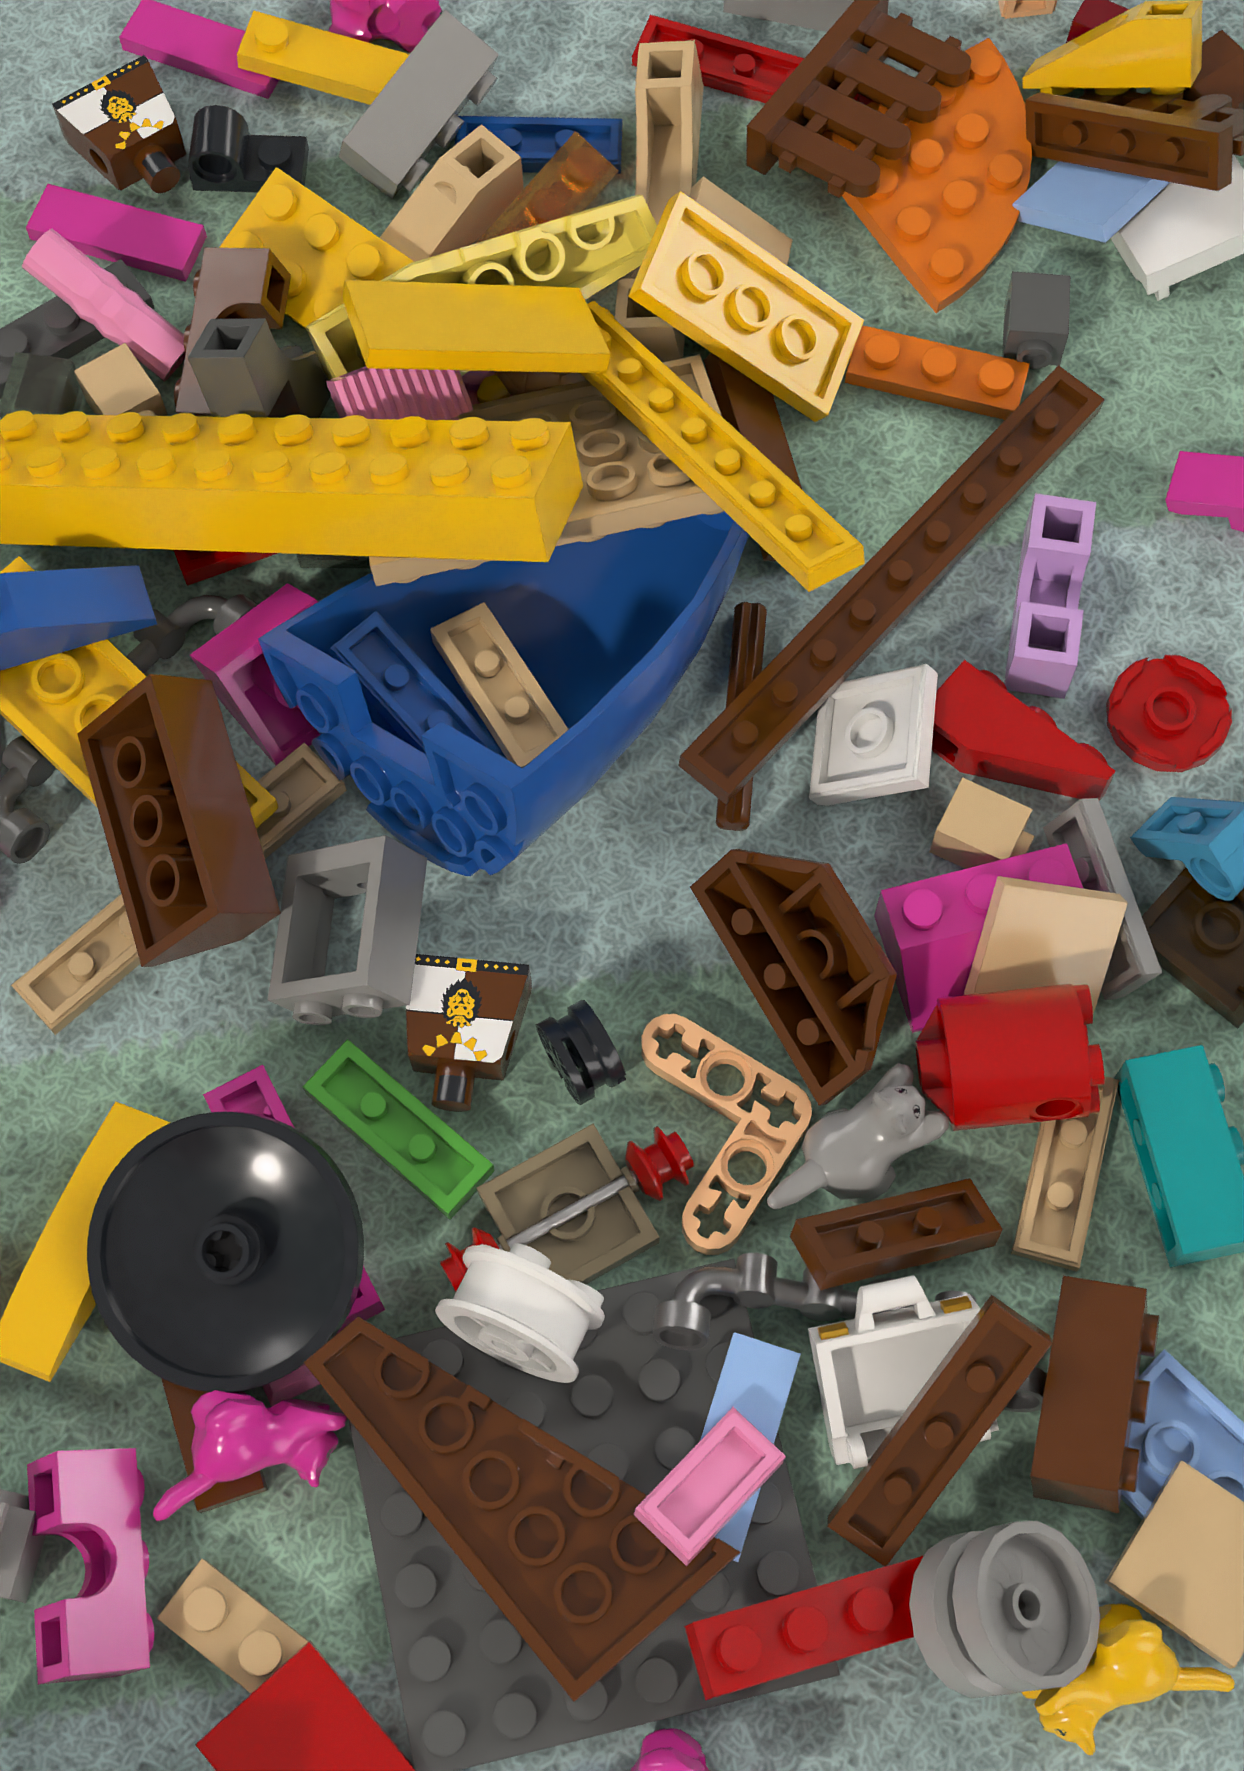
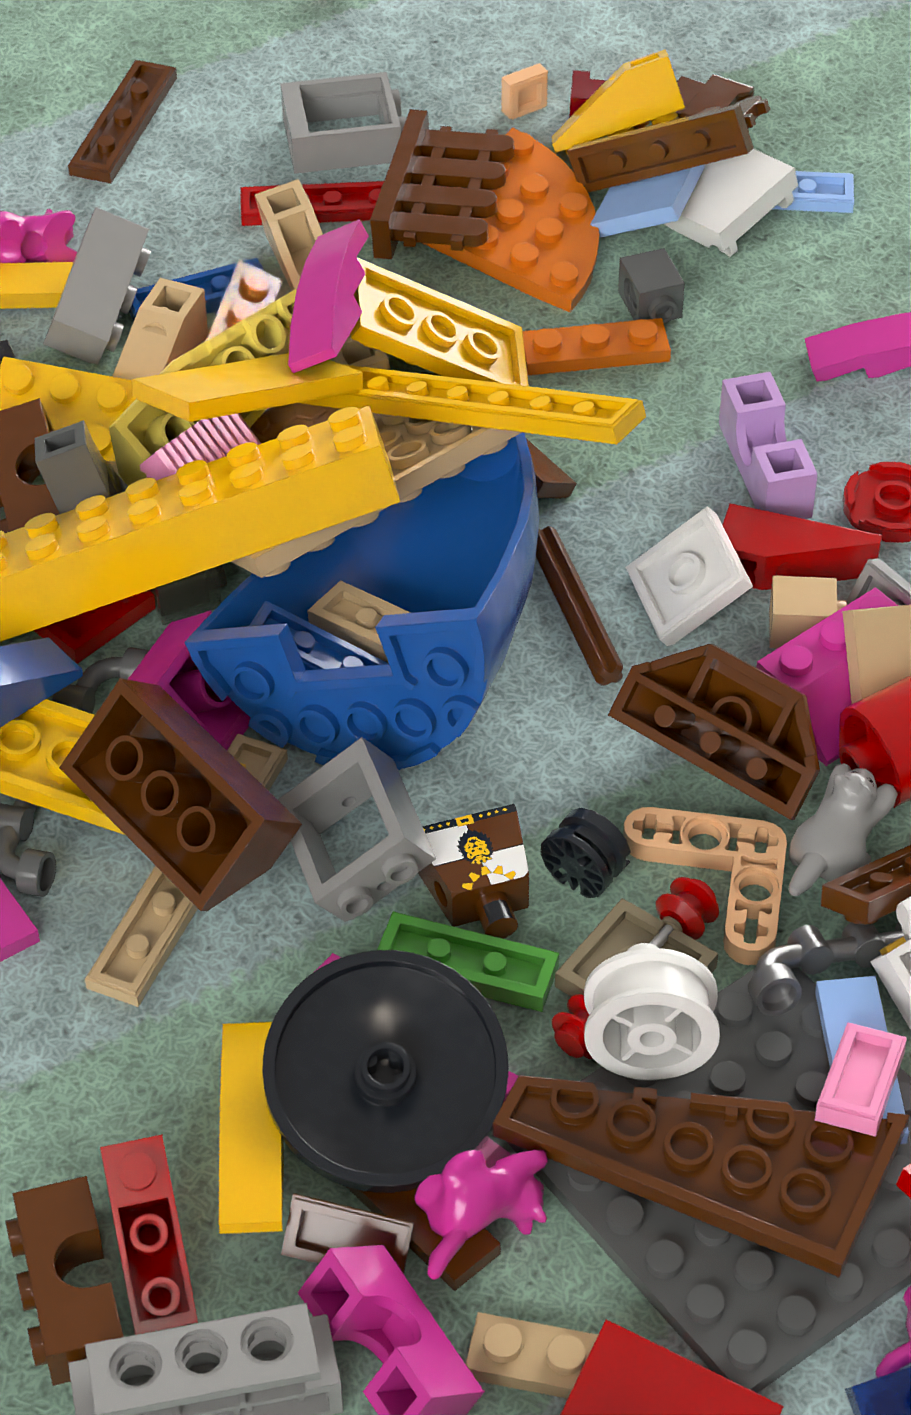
camera: 25 degrees left, 20 degrees down
(115, 1410) = (322, 1225): none -> tile
(608, 244) = (324, 297): none -> dark pink slope
(889, 586) = (641, 485): reddish brown plate -> none

